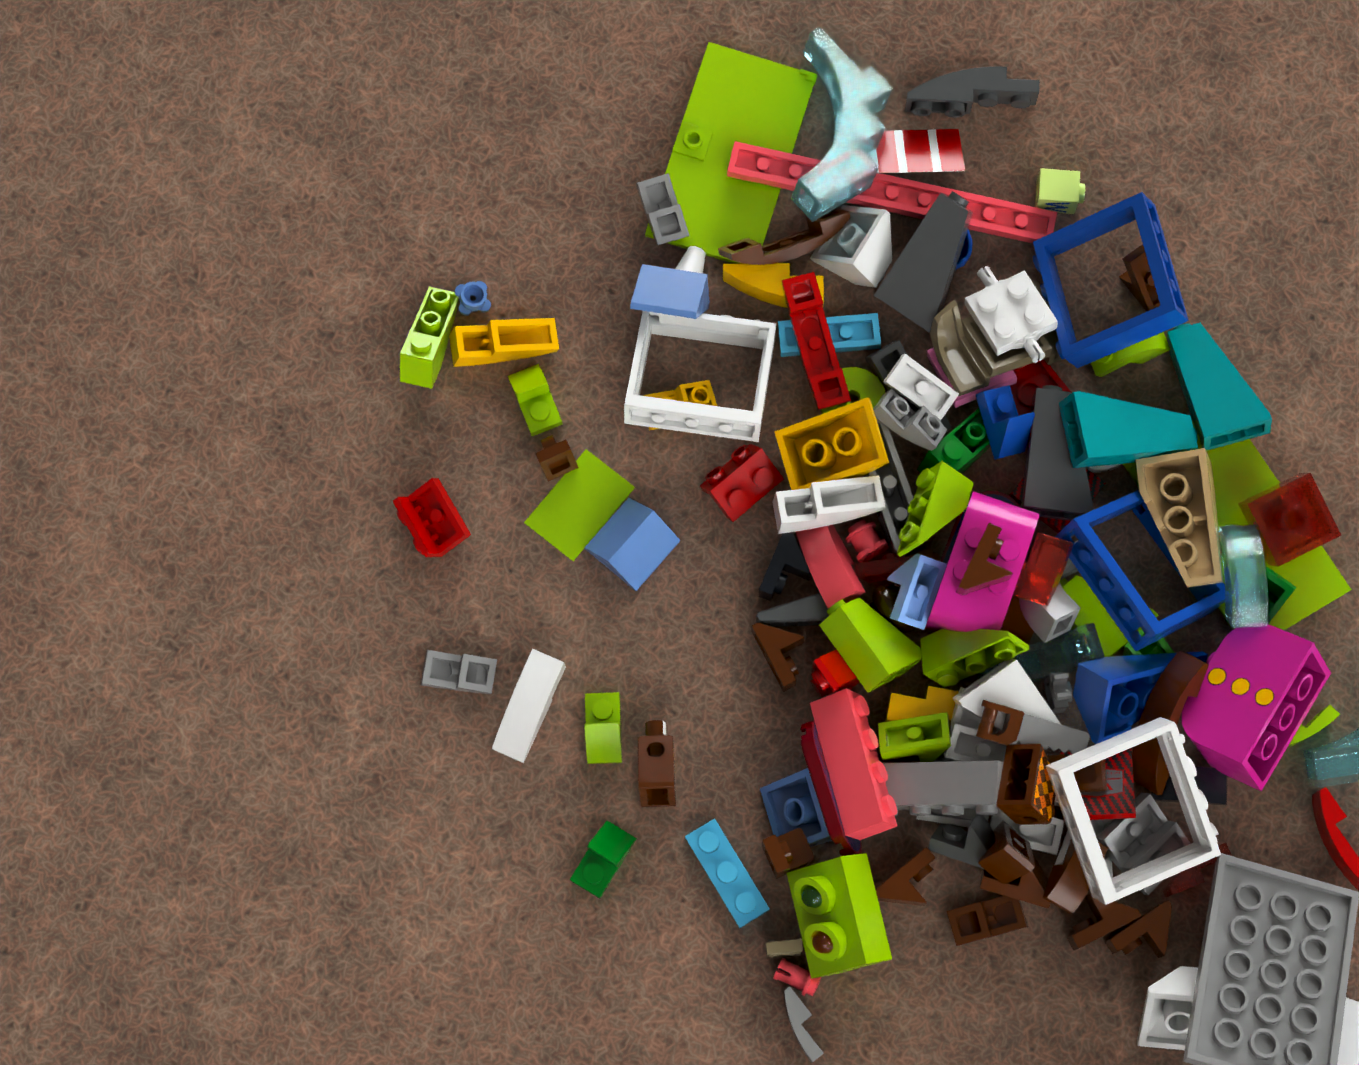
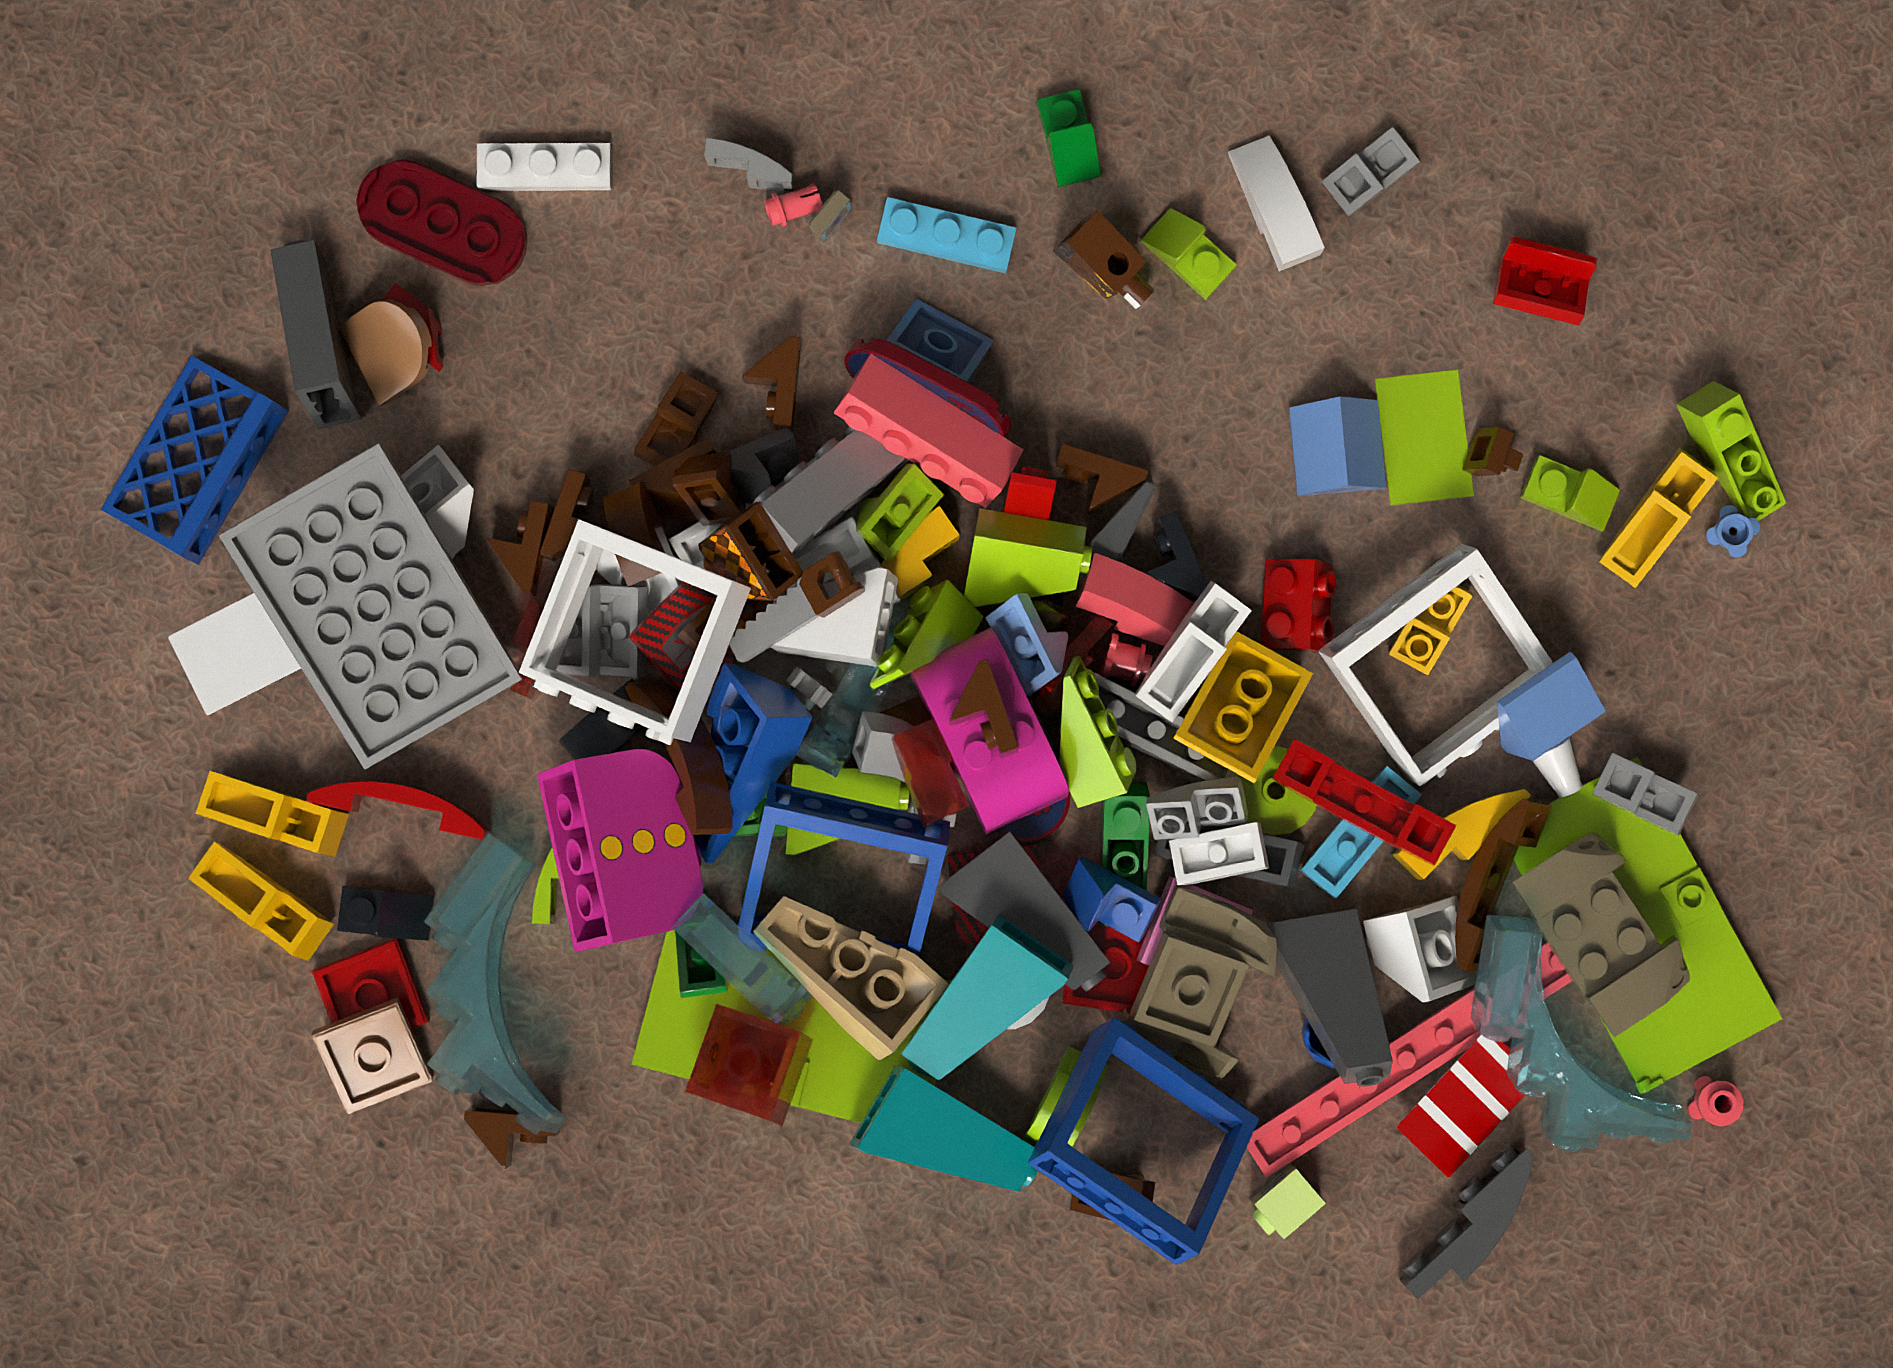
camera: 125 degrees right, 10 degrees up
(761, 158) = (1601, 933): none -> dark tan piece
(783, 35) = (1705, 1097): none -> coral brick
(787, 852) = (911, 294): reddish brown slope -> none
(839, 915) = (807, 284): lime piece -> none
(1011, 313) = (1206, 1015): white plate -> none

